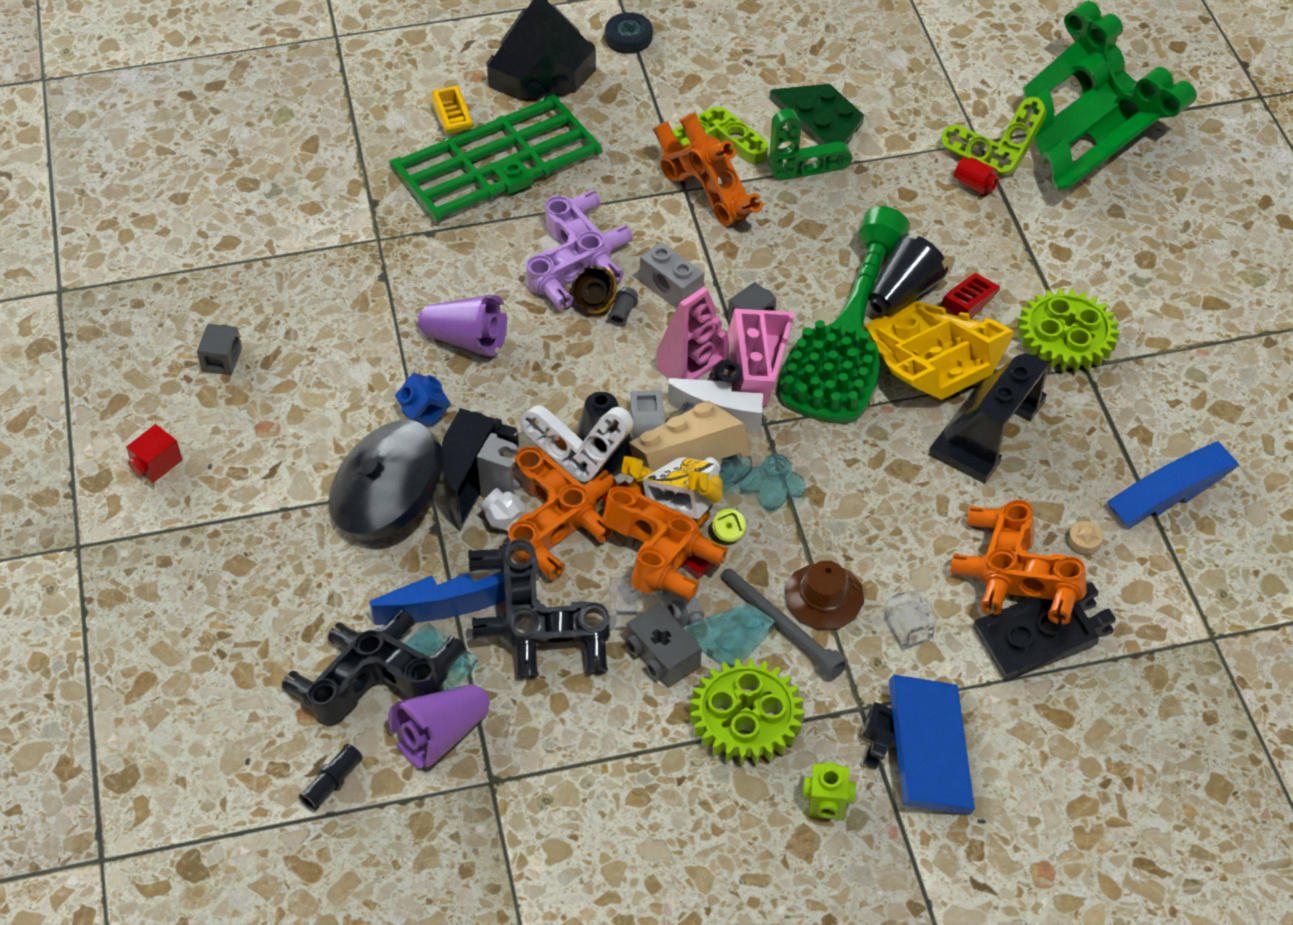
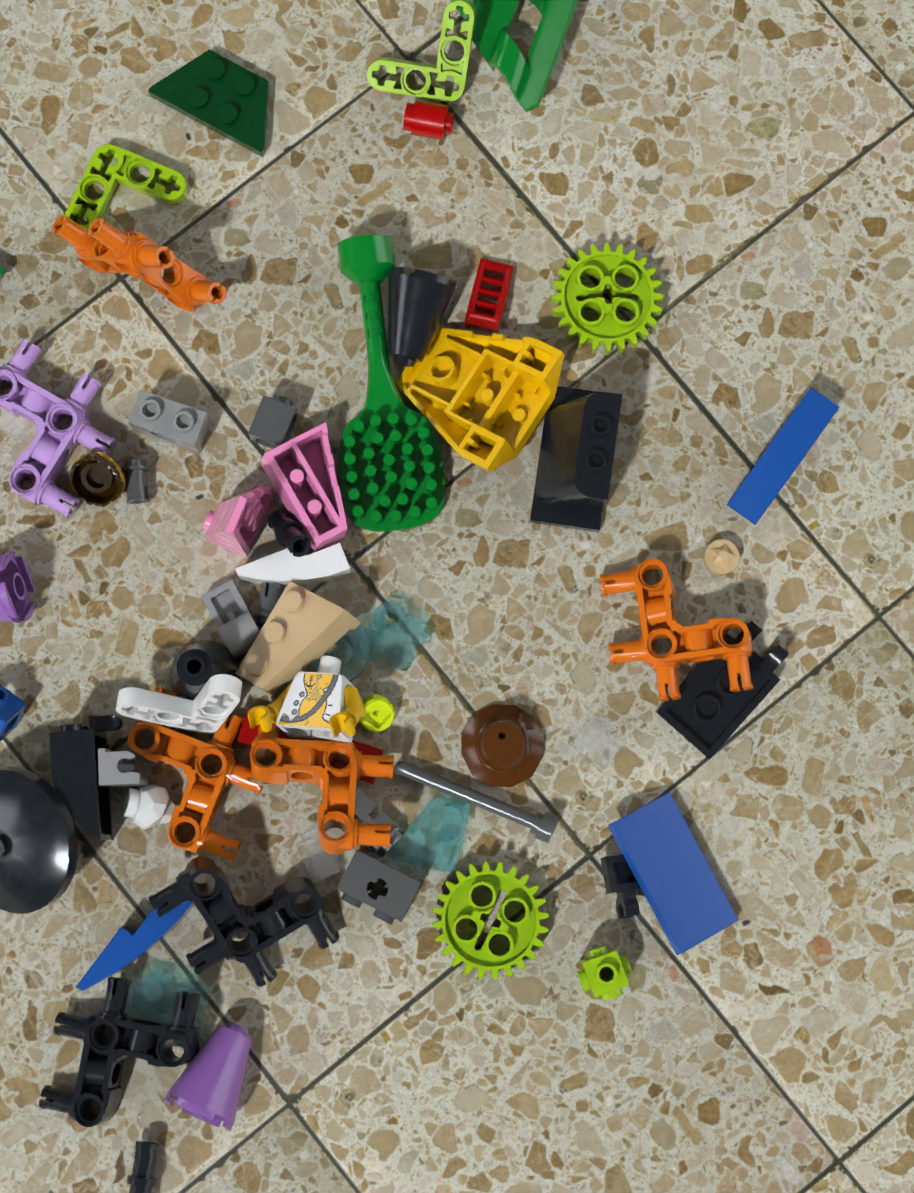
camera: 30 degrees left, 30 degrees up
(836, 154) = (217, 191): green beam -> none

